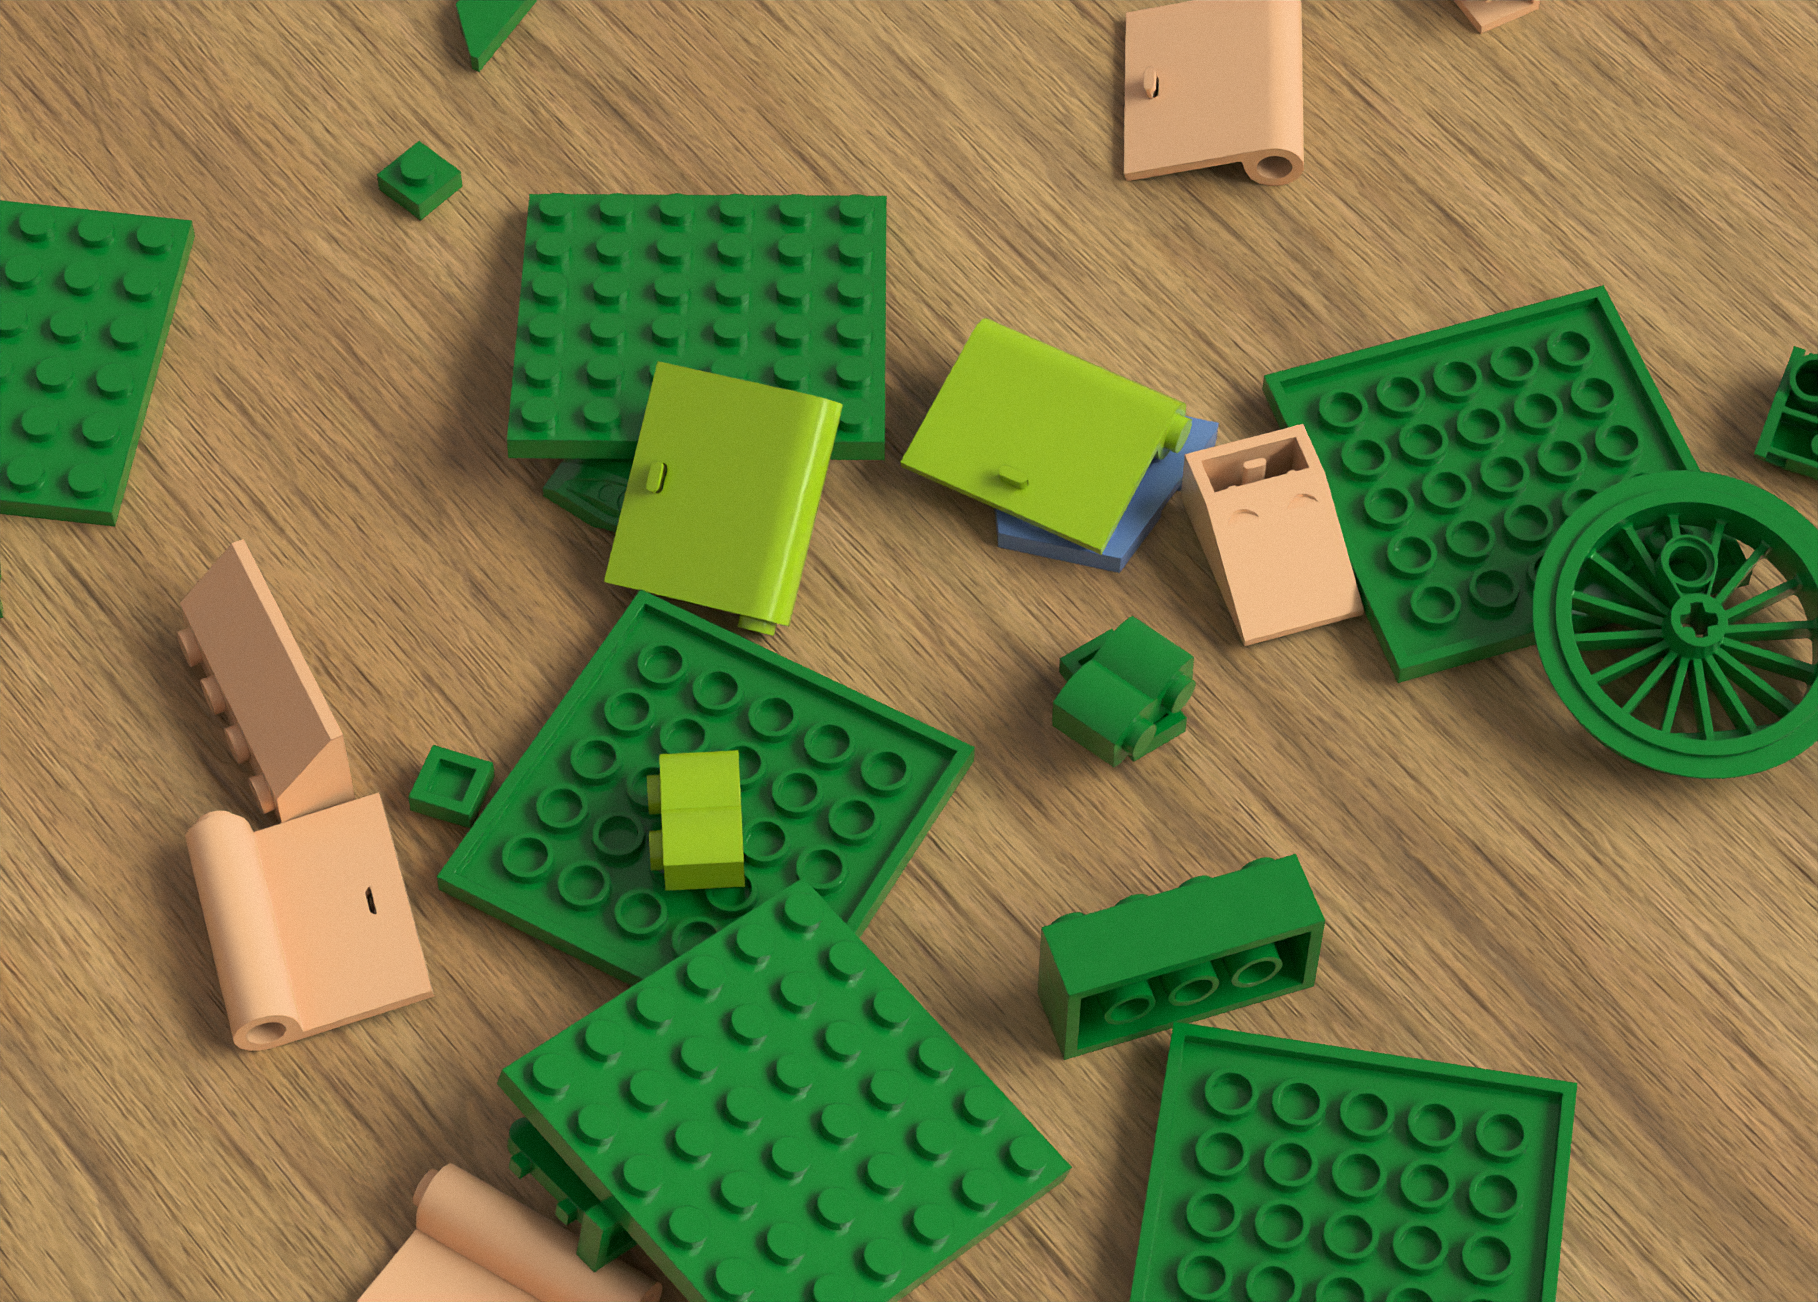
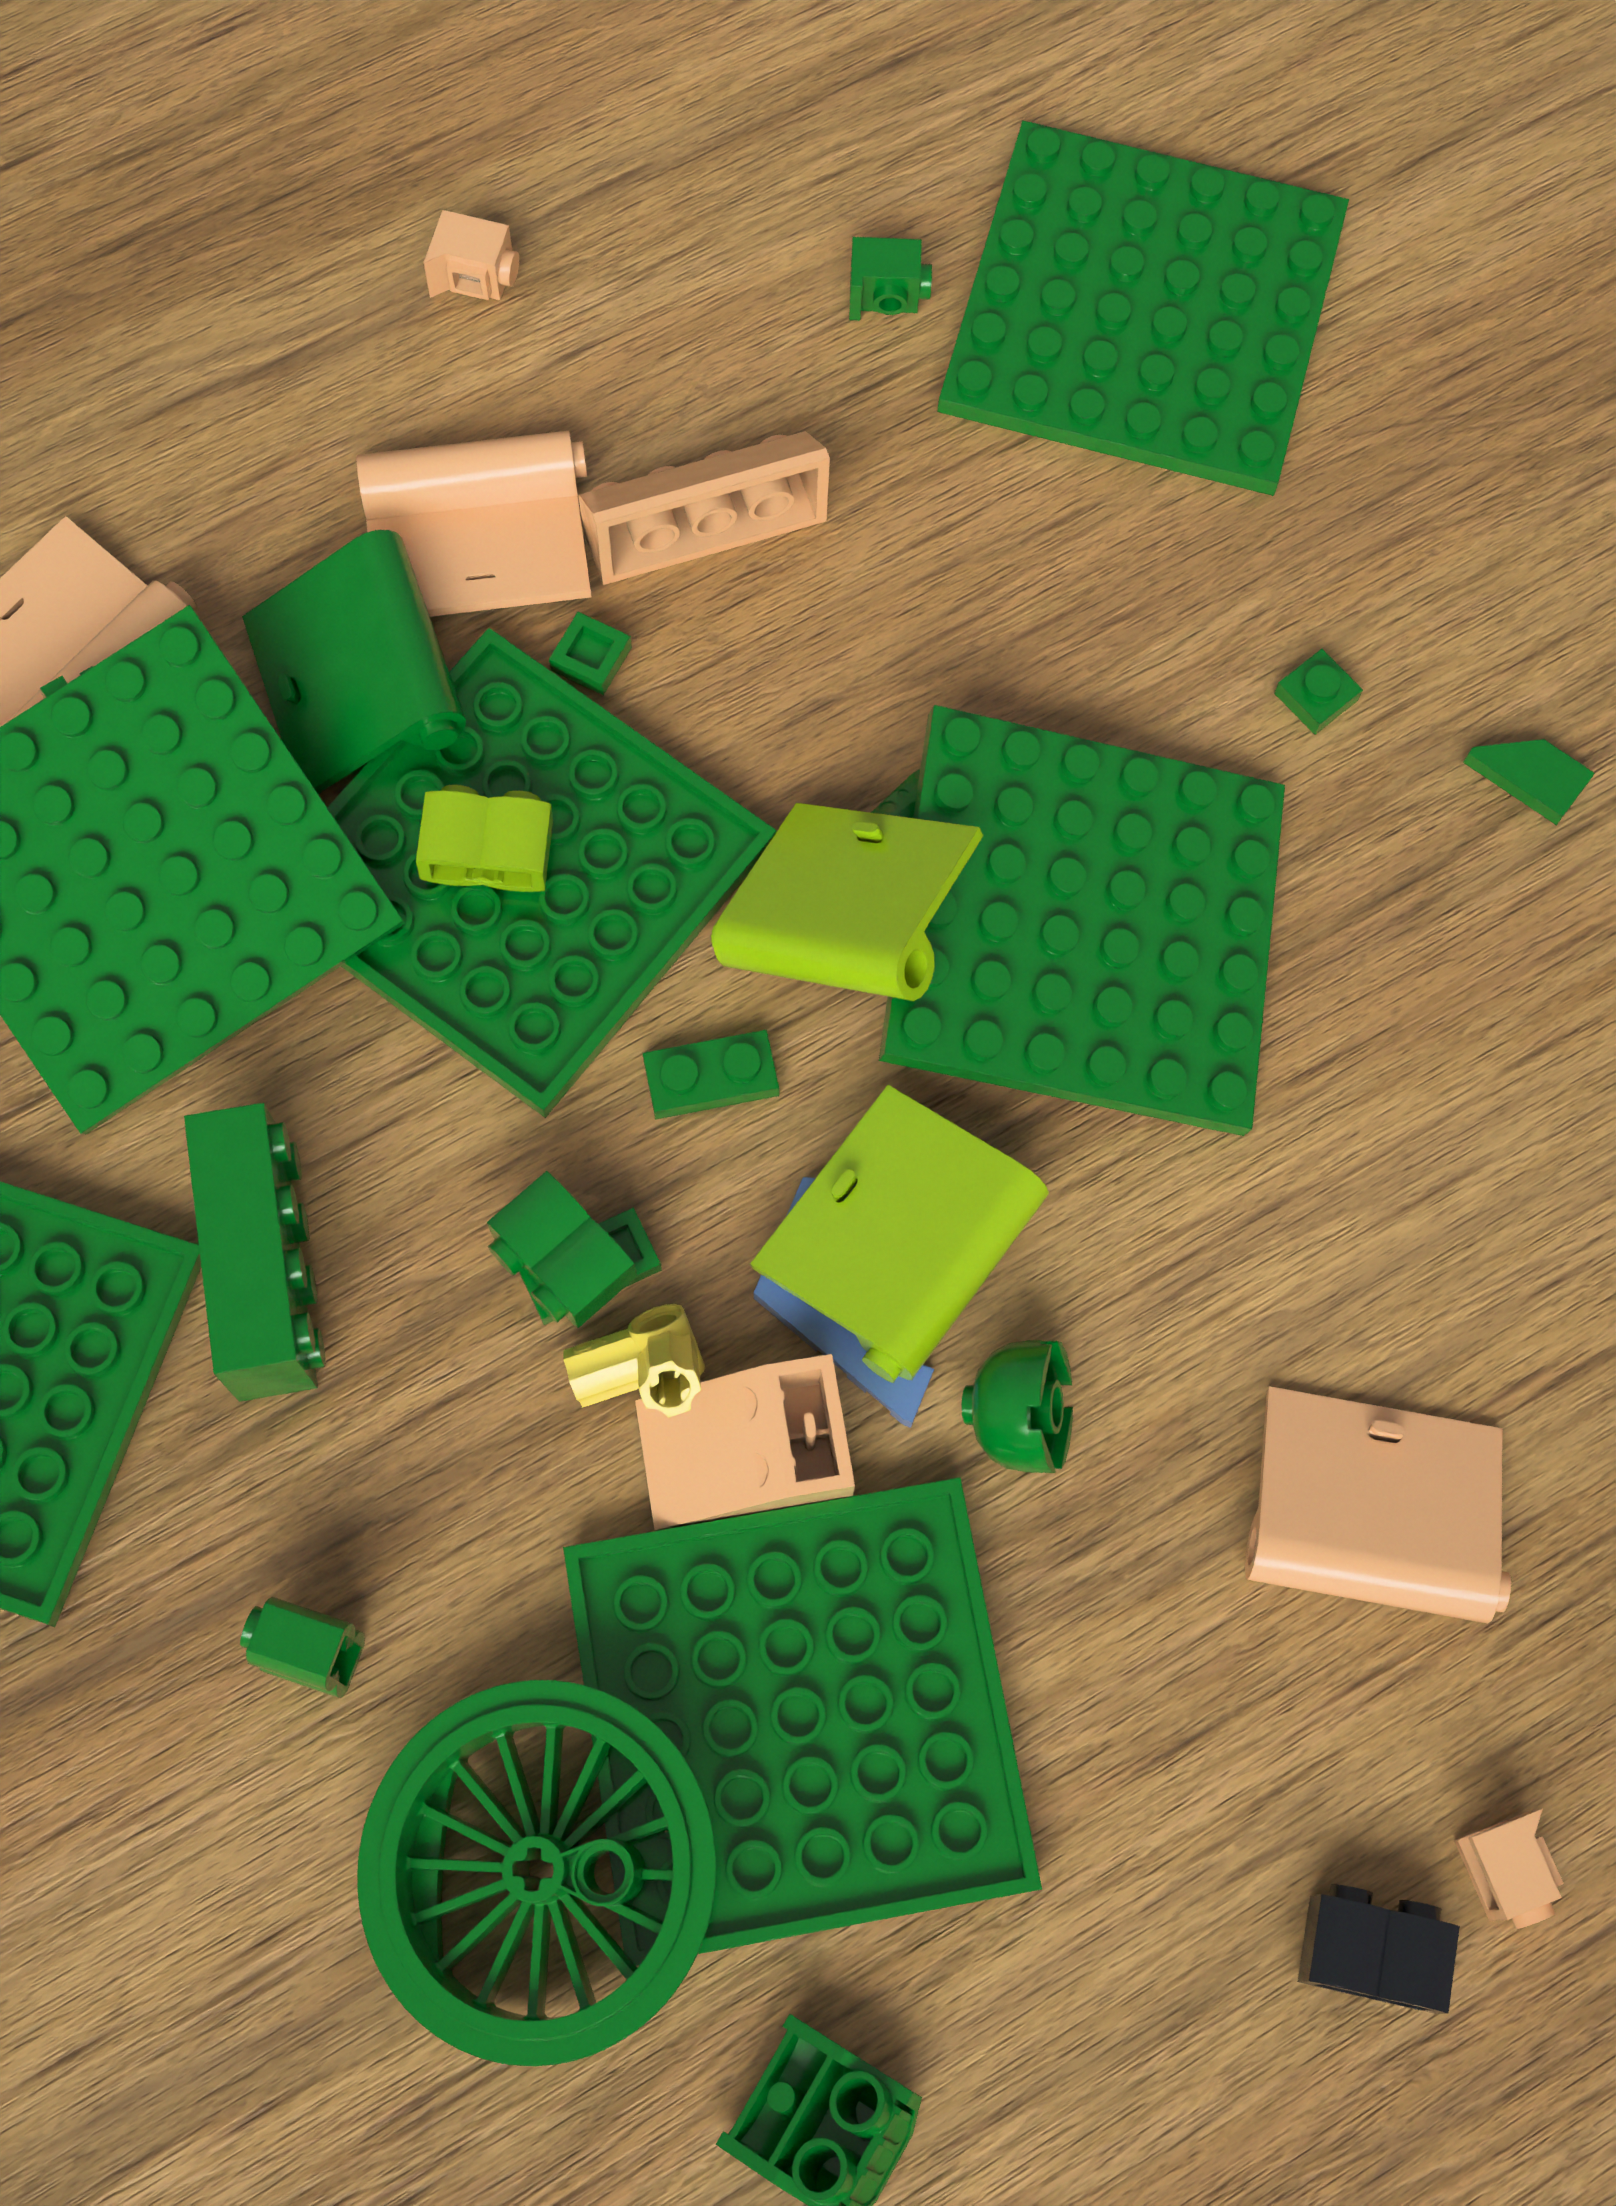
camera: 95 degrees right, 15 degrees up
(489, 983) = (354, 661): none -> green door
(903, 628) = (711, 1074): none -> green plate
(1190, 332) = (1021, 1406): none -> green cylinder
(1203, 613) = (651, 1355): none -> light yellow piece
(1549, 843) = (302, 1646): none -> green brick
(1587, 64) = (1378, 1951): none -> black brick

